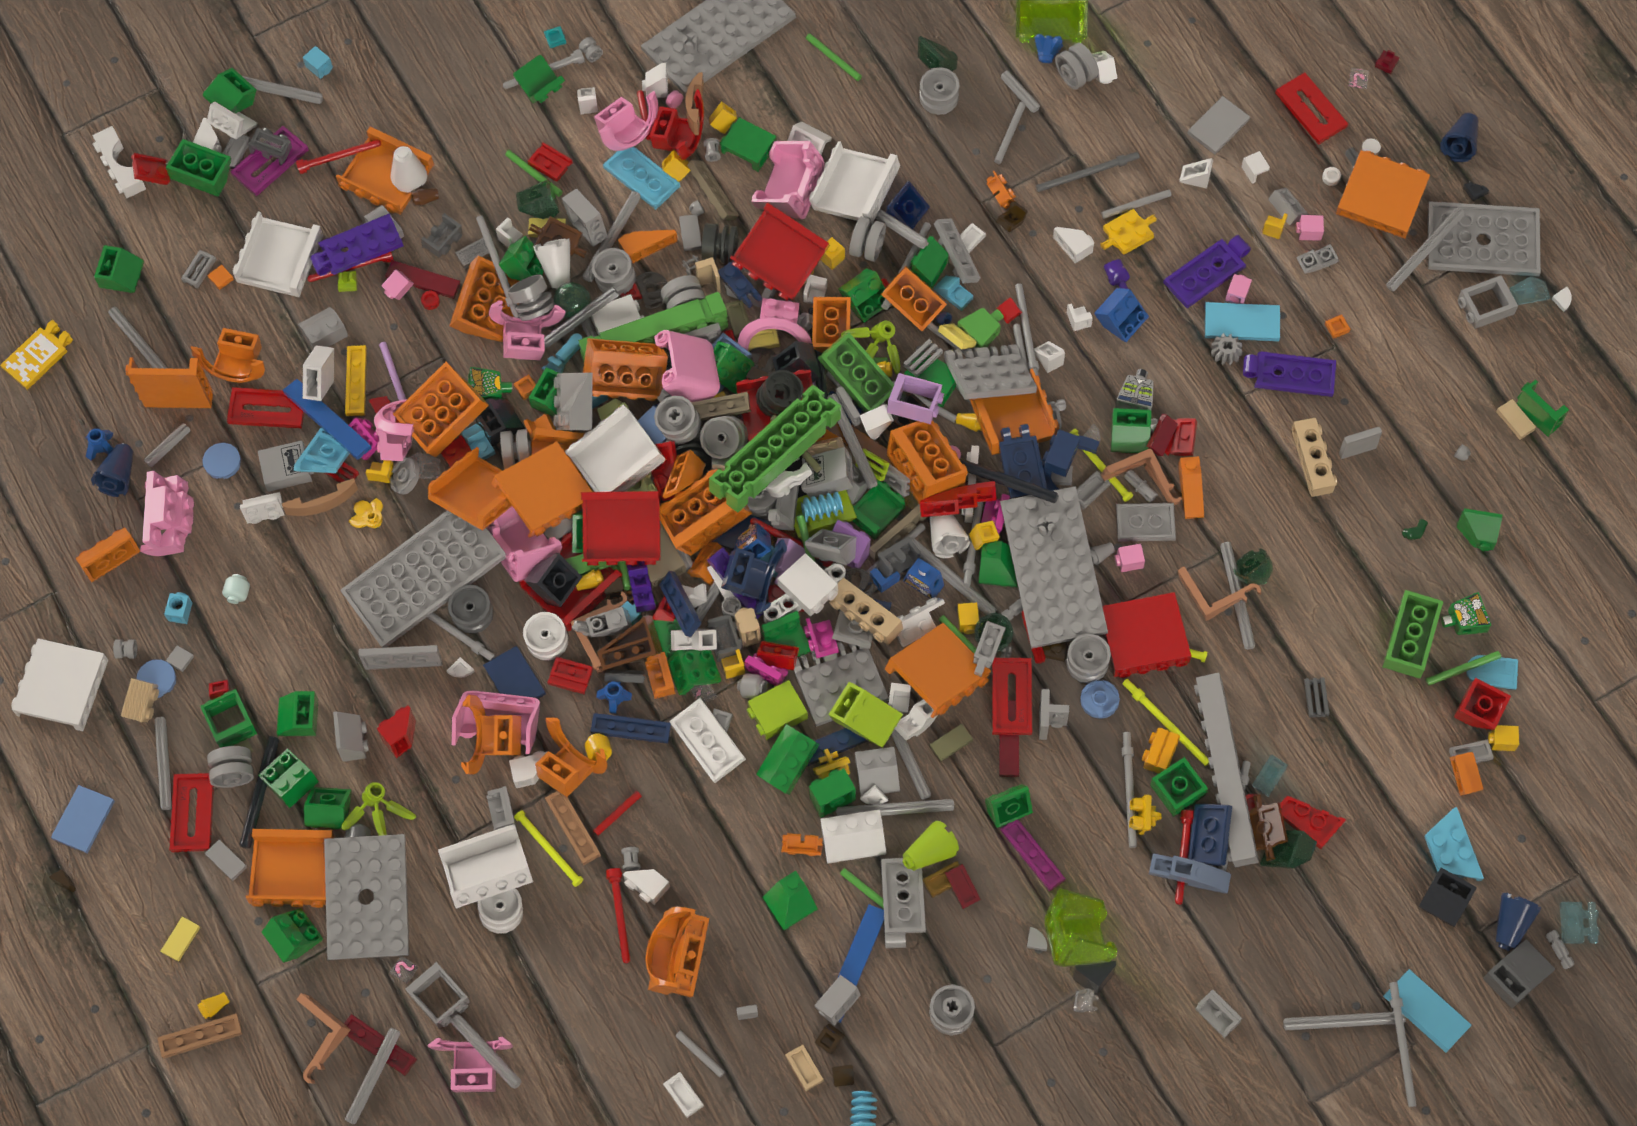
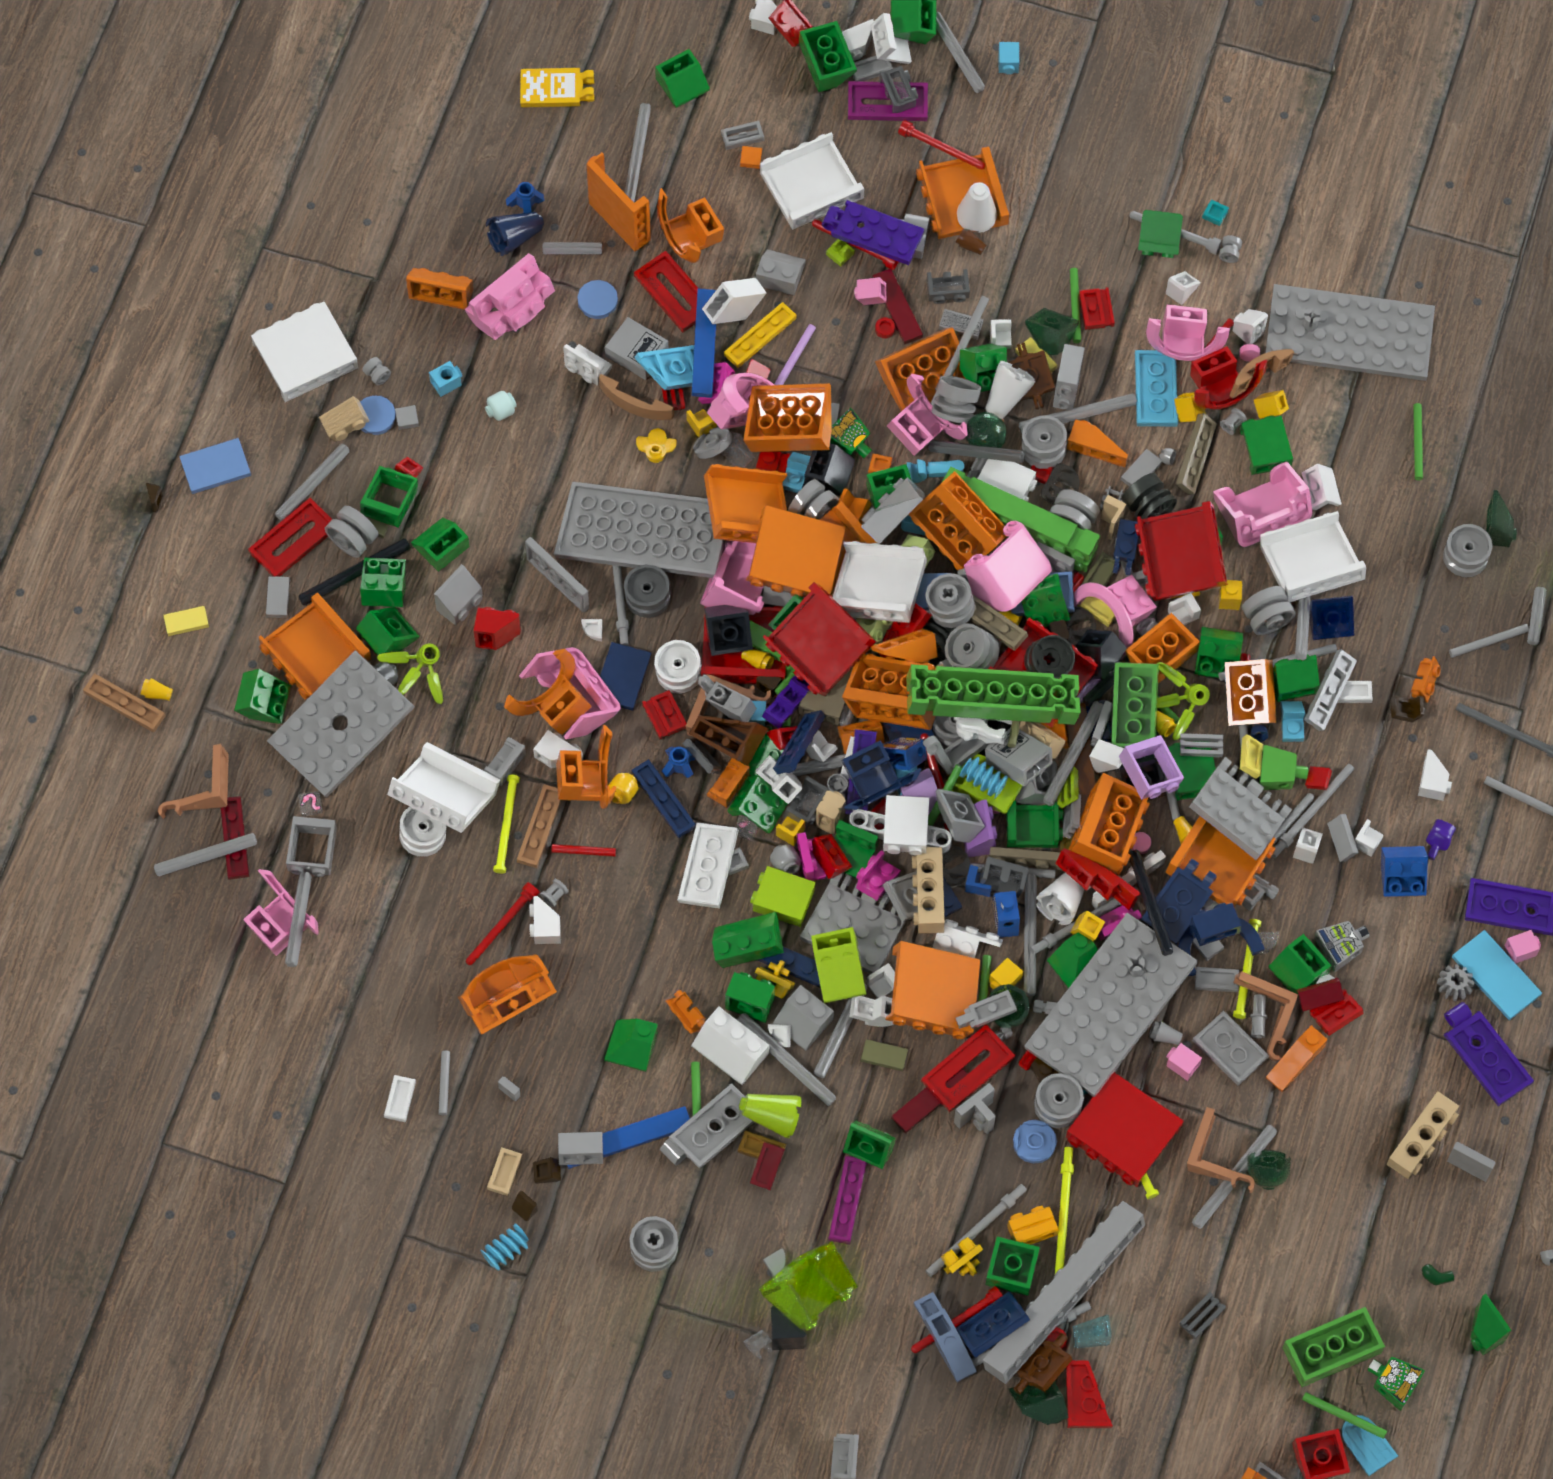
camera: 45 degrees right, 0 degrees up
(1065, 330) = (1343, 838): none -> light grey tile
(1128, 231) = (1489, 813): yellow plate -> none

